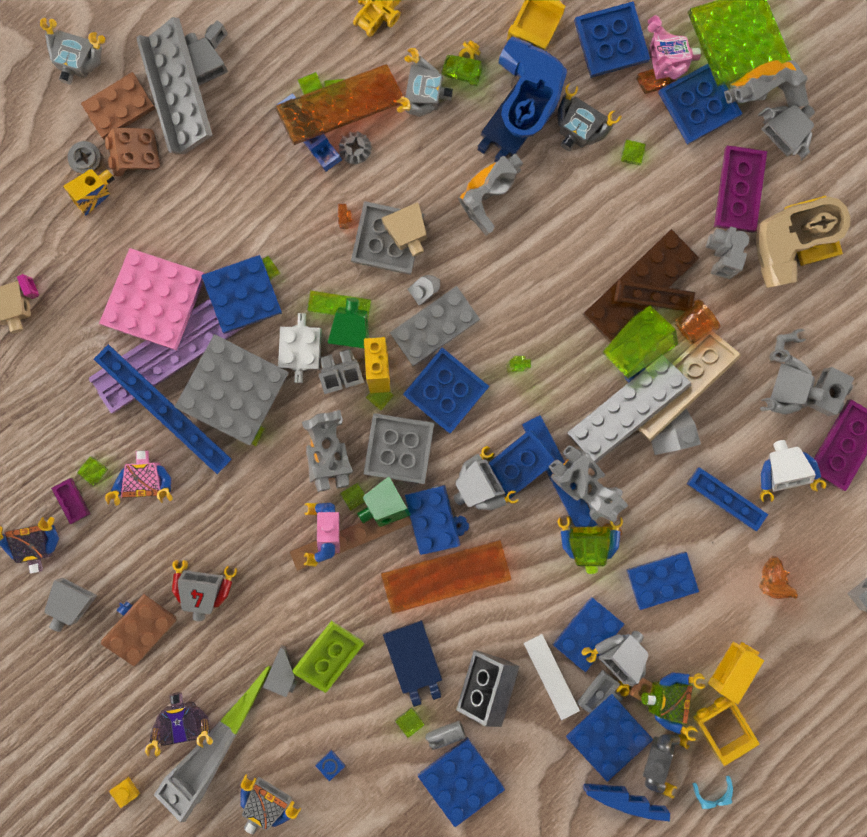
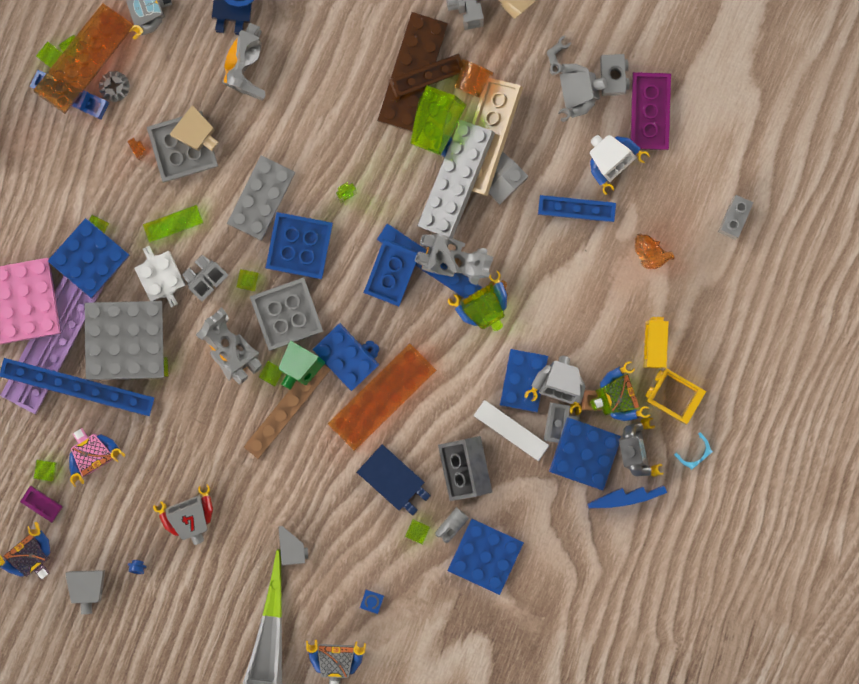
camera: 30 degrees left, 0 degrees up
(138, 630) = (155, 577): nougat plate -> none
(179, 724) = (230, 634): torso -> none
(327, 532) = (266, 413): torso -> none
(328, 657) = (321, 513): lime plate -> none
(349, 325) = (192, 235): green torso -> none
(377, 365) = (231, 255): yellow window -> none
(424, 288) = (236, 171): light grey plate -> none
(479, 484) = (368, 307): light grey torso -> none
(662, 580) = (560, 304): blue plate -> none

